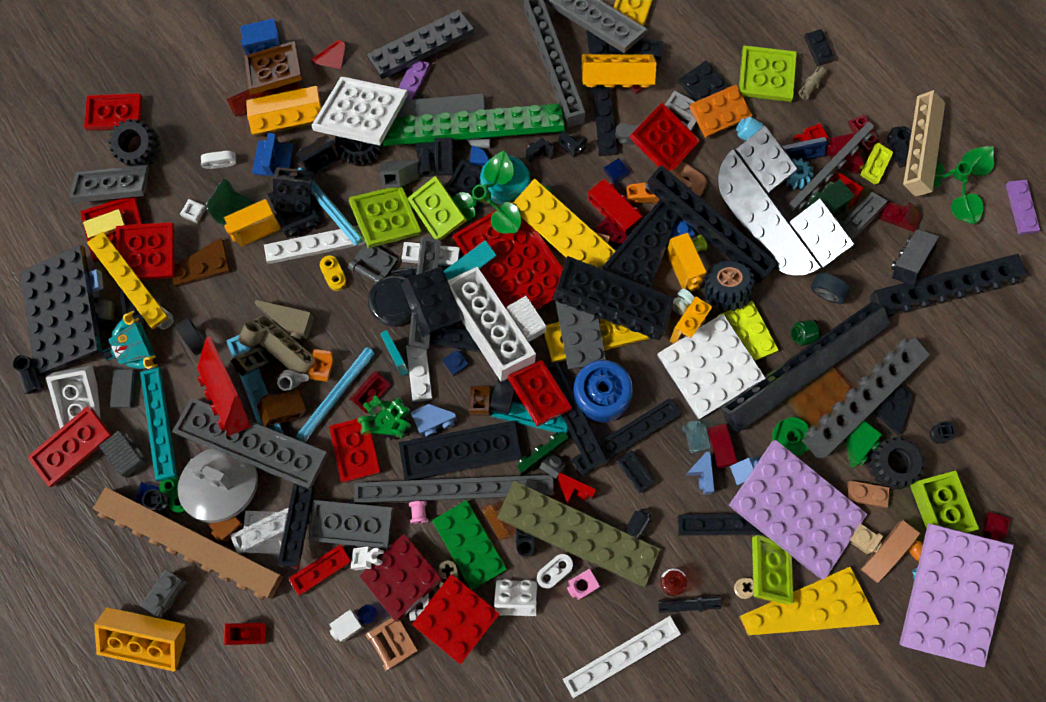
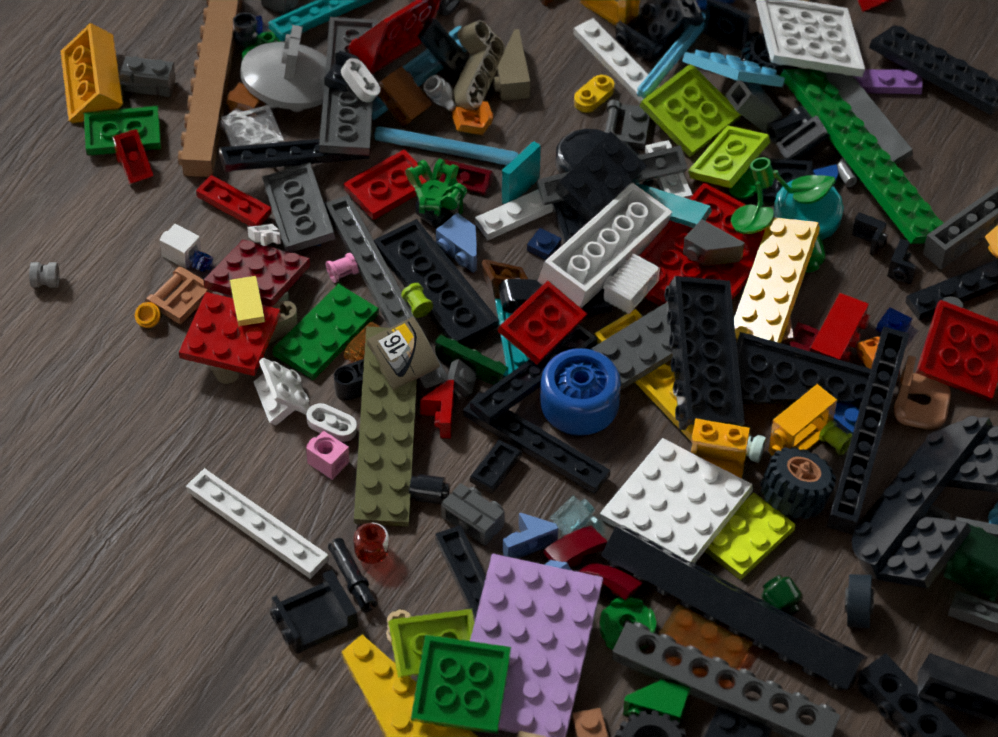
camera: 65 degrees right, 20 degrees down
(205, 632) = (103, 125): none -> green plate
(242, 443) = (334, 77): none -> black bracket
(259, 433) = (360, 80): none -> white beam
(370, 172) = (734, 68): none -> medium azure plate
(401, 673) = (147, 315): none -> light orange plate
(439, 596) = (247, 301): none -> light yellow tile
(478, 470) = (417, 300): none -> lime bush
(515, 254) = (712, 245): none -> dark grey slope
(536, 500) = (403, 353): none -> dark tan slope
(671, 502) = (474, 513): none -> dark grey brick
(712, 643) = (315, 614): none -> black panel
(753, 436) = (618, 581): none -> dark red slope
(816, 565) = (461, 684): none -> green plate

